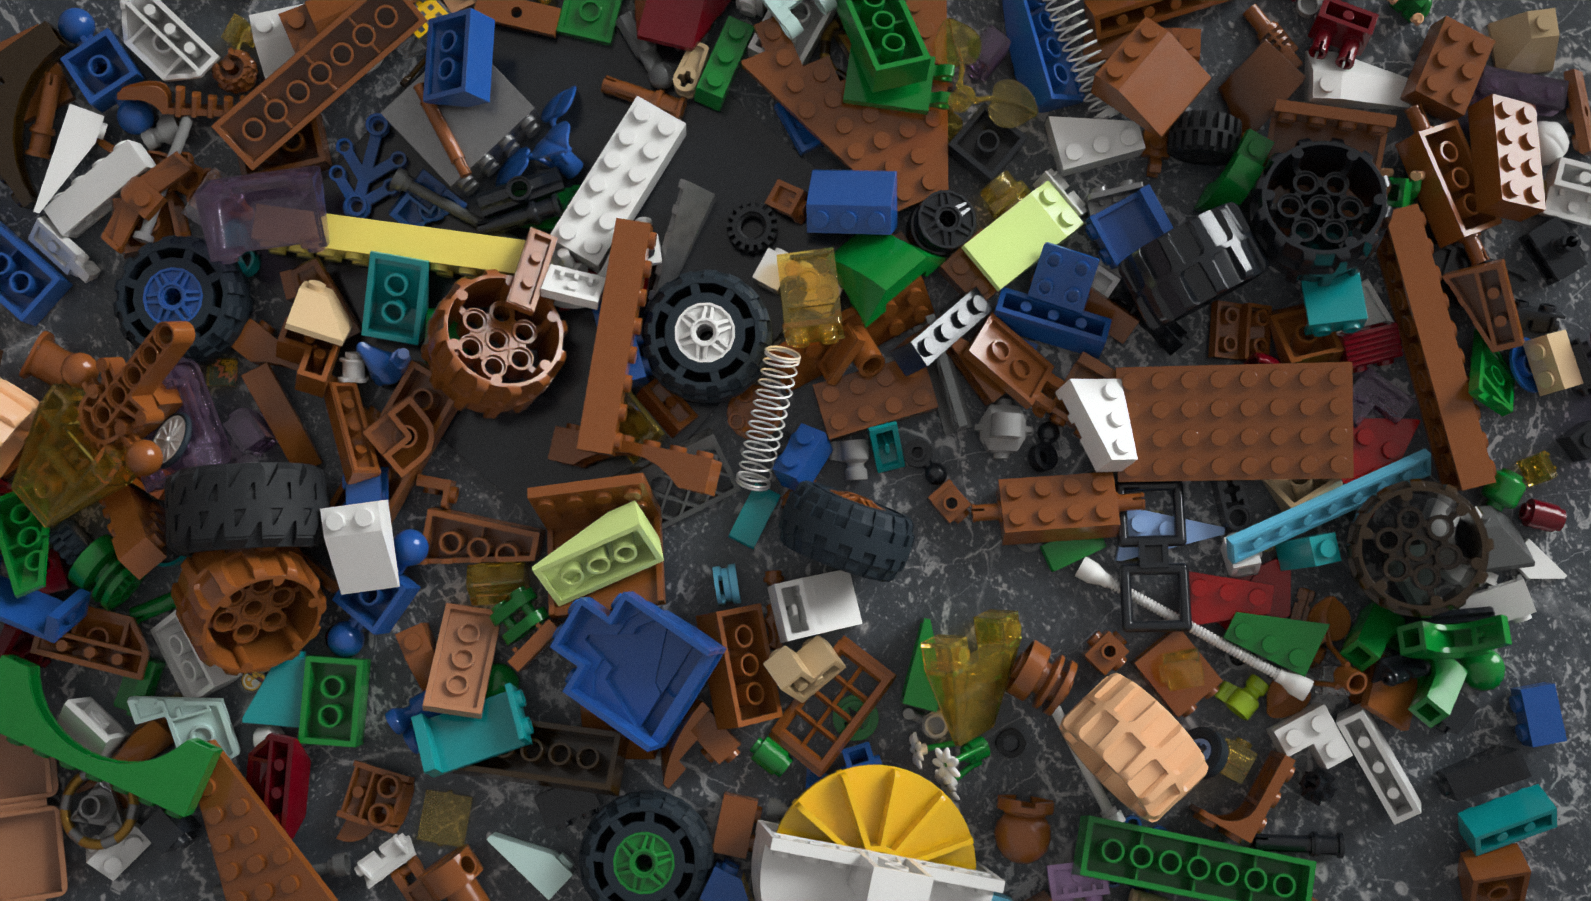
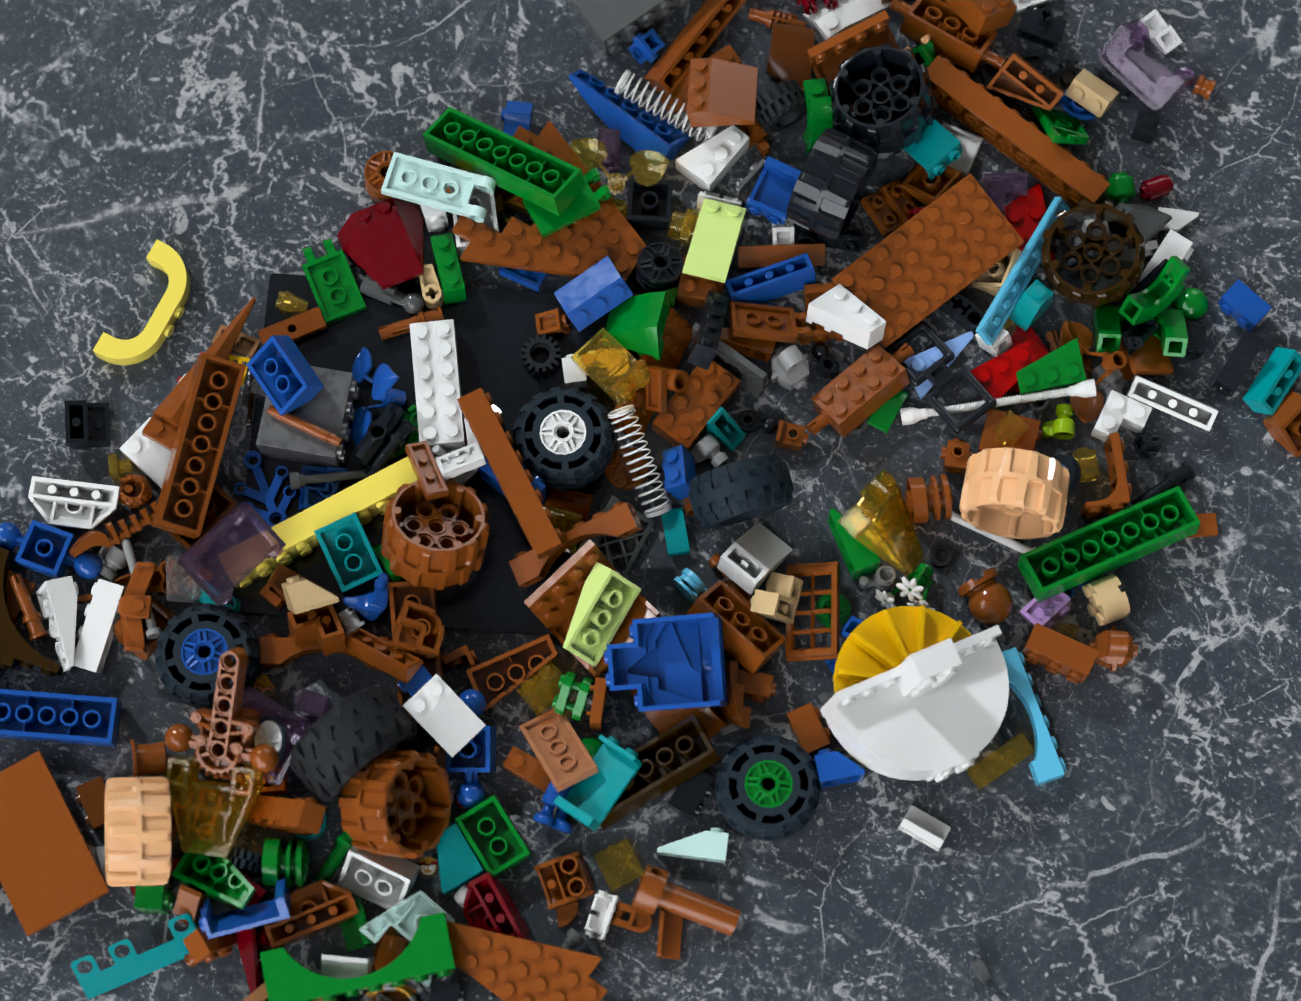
camera: 40 degrees left, 10 degrees down
(62, 250) = (100, 684): white hinge -> none
(281, 415) = (316, 680): dark orange tile -> none
(686, 223) = (497, 379): flat silver wedge -> none
(770, 756) = (797, 671): green brick -> none
(1064, 277) = (758, 246): blue bracket -> none
(1370, 345) = (976, 158): dark red brick -> none
(1537, 468) = (1131, 162): clear yellow tile -> none

